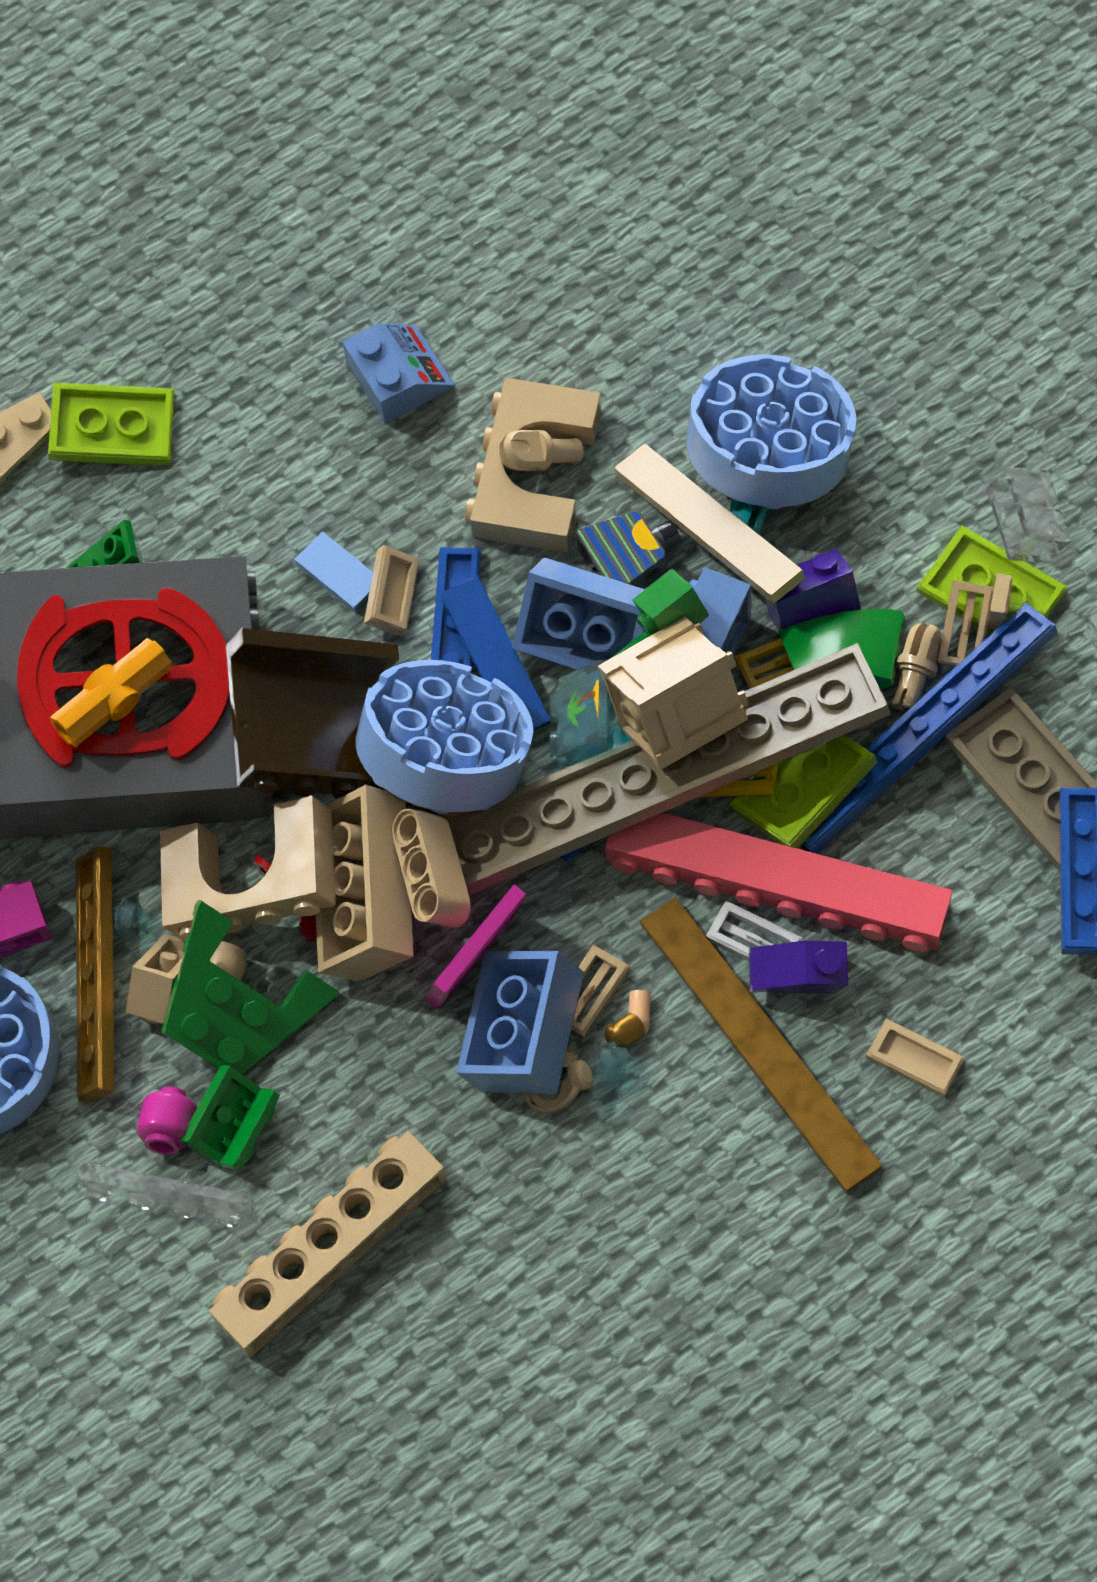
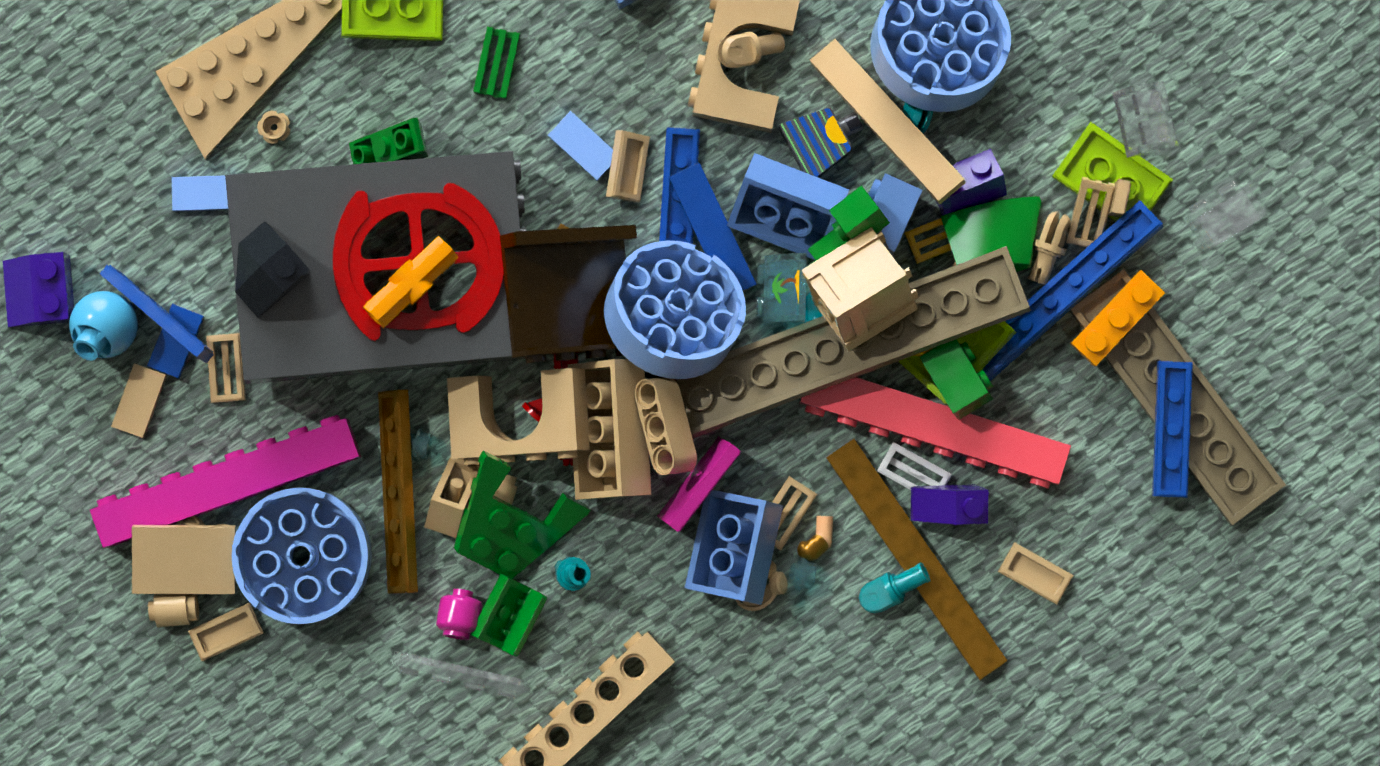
camera: 10 degrees left, 20 degrees up
(241, 455) = (502, 35): none -> green tile
(313, 1060) = (572, 573): none -> teal arm
(725, 1077) = (891, 588): none -> teal arm
(802, 807) = (957, 377): none -> green brick
(1005, 741) = (1117, 318): none -> light orange plate

